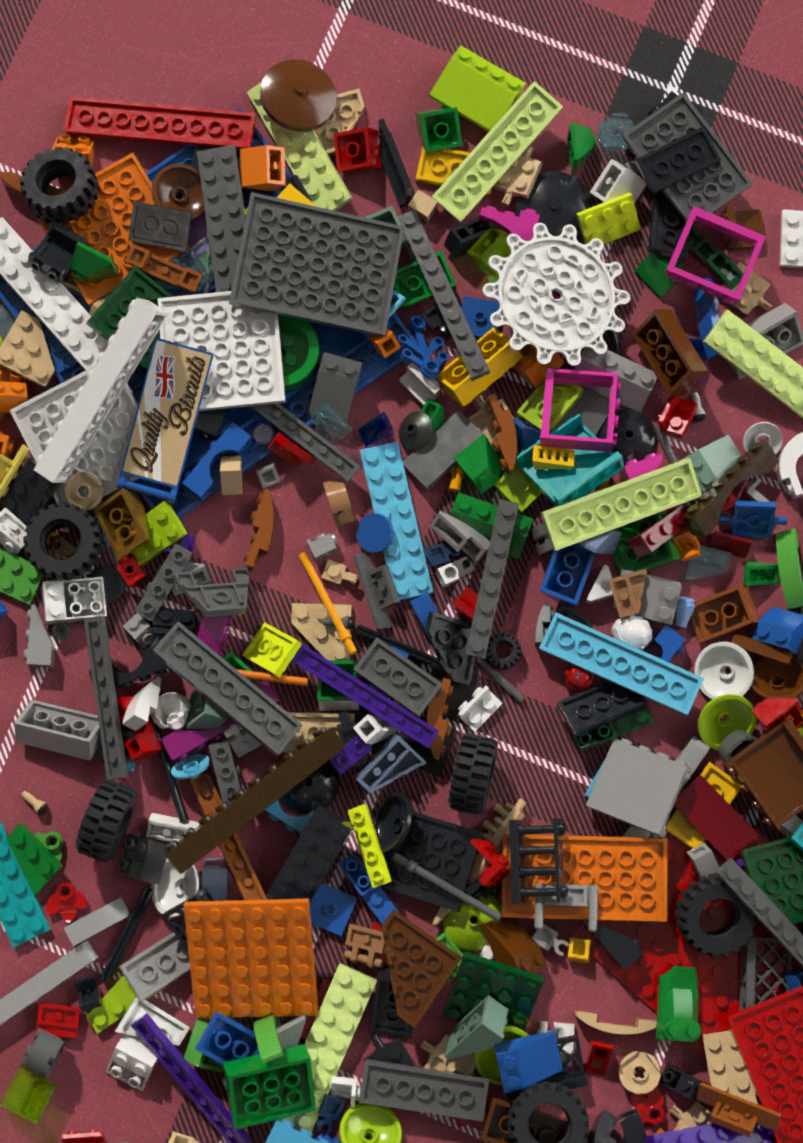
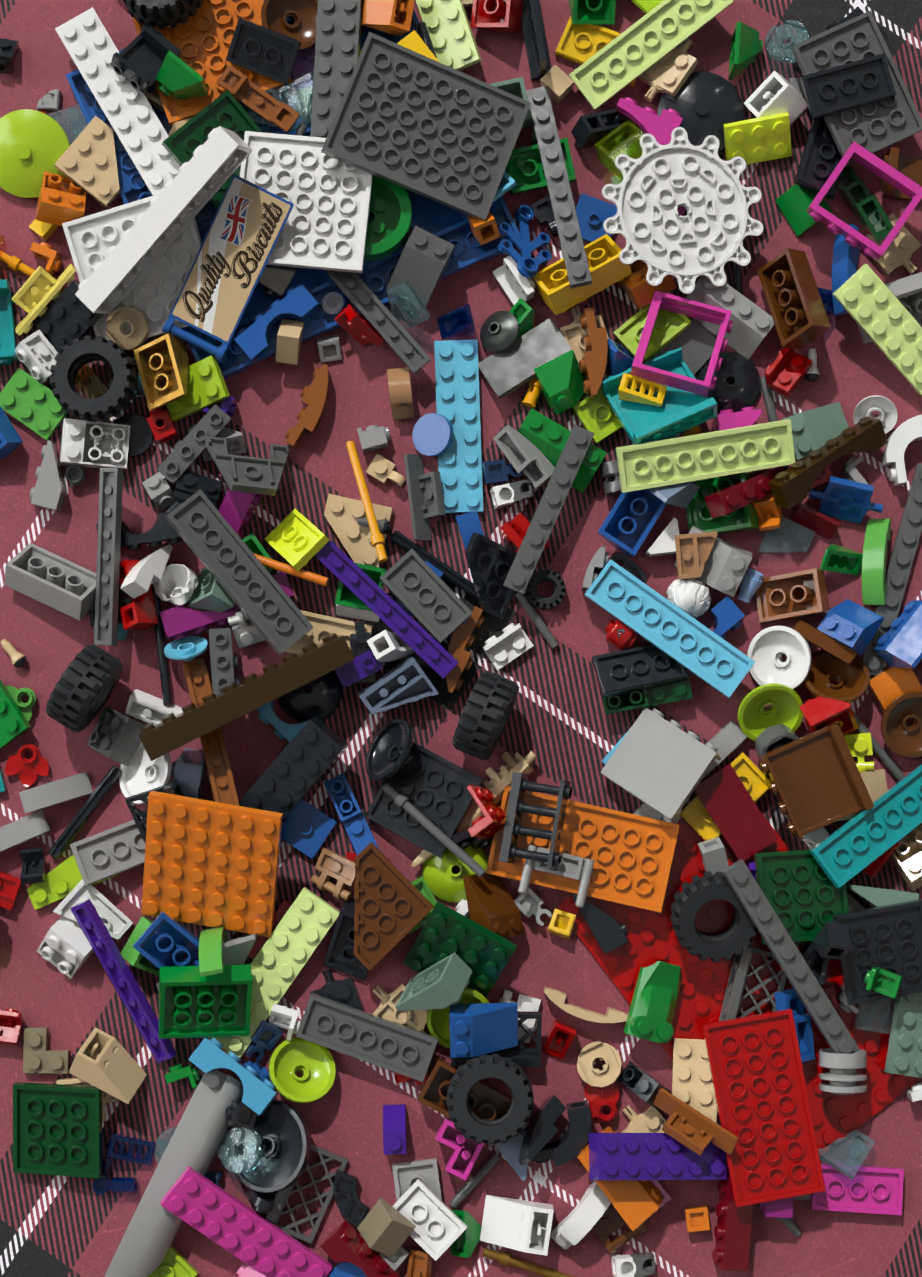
camera: 10 degrees right, 5 degrees up
(369, 846) = (360, 770): neon yellow bracket -> none

